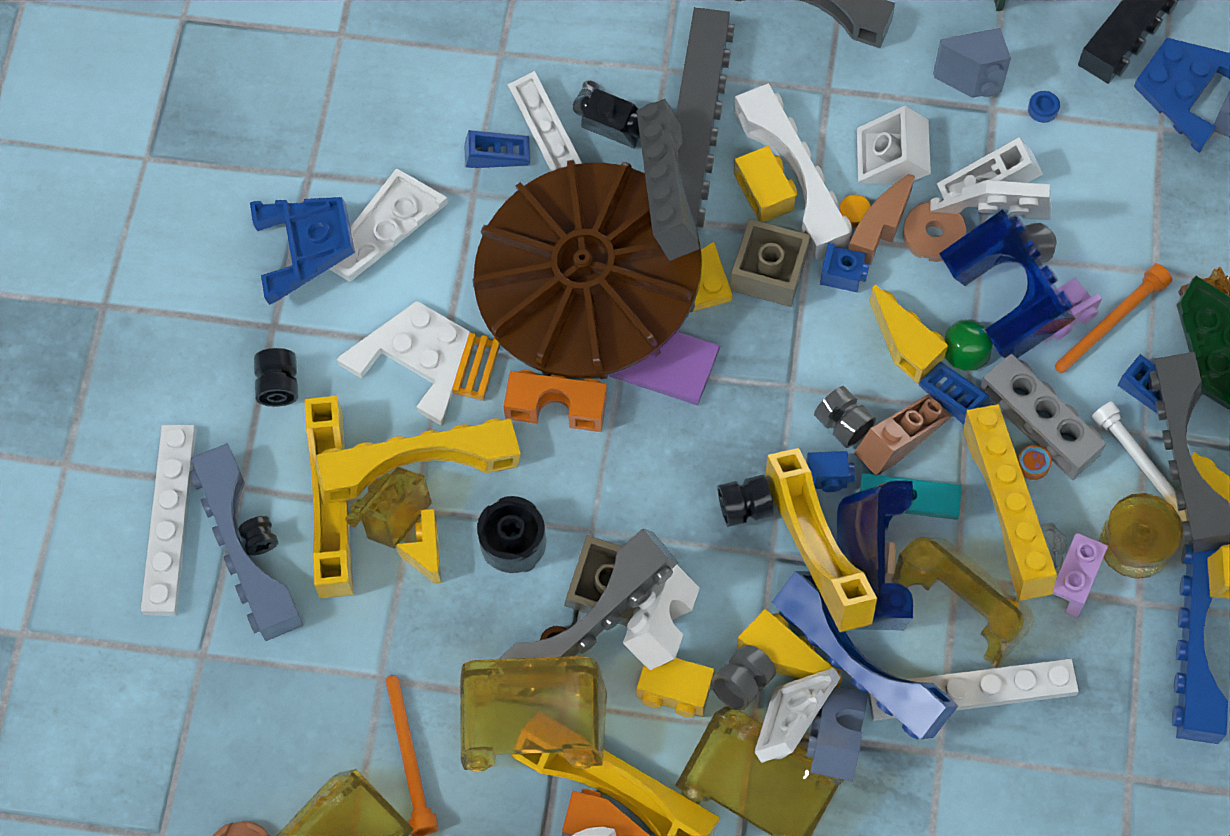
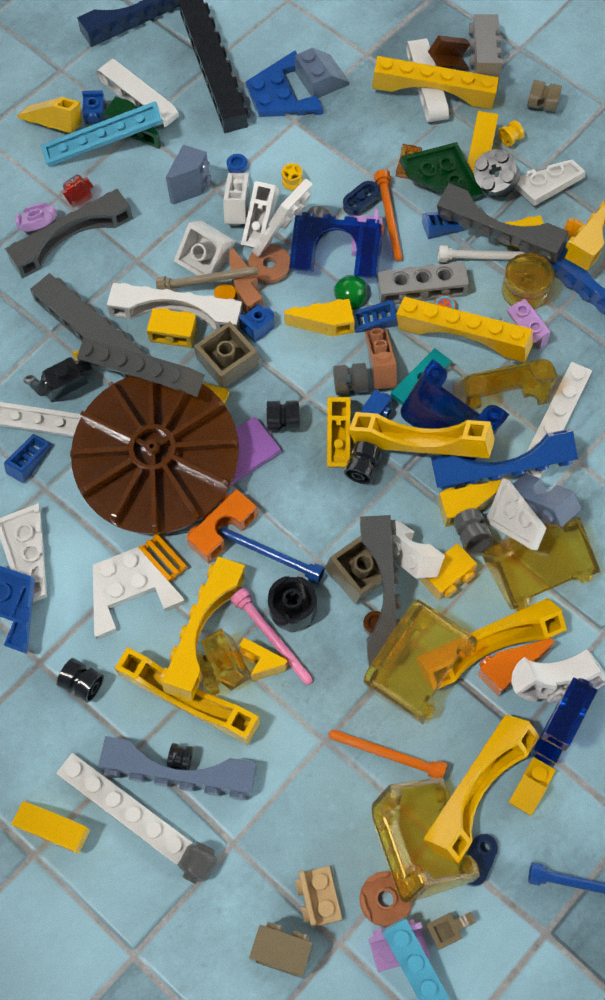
camera: 55 degrees left, 0 degrees up
(101, 460) = (51, 827): none -> yellow slope
(108, 776) = (281, 950): none -> dark tan brick
(154, 630) = (198, 862): none -> dark grey head
(196, 781) = (319, 897): none -> tan bracket
(483, 481) = (243, 600): none -> bright pink piece
(570, 536) = (312, 572): none -> blue piece
(743, 378) = (283, 415): none -> black wheel
(784, 431) = (338, 431): none -> yellow slope
(817, 142) = (167, 283): none -> dark tan piece
(990, 132) = (236, 199): none -> white slope
(1078, 169) = (289, 171): none -> yellow wheel
(1107, 271) = (359, 199): none -> dark blue plate

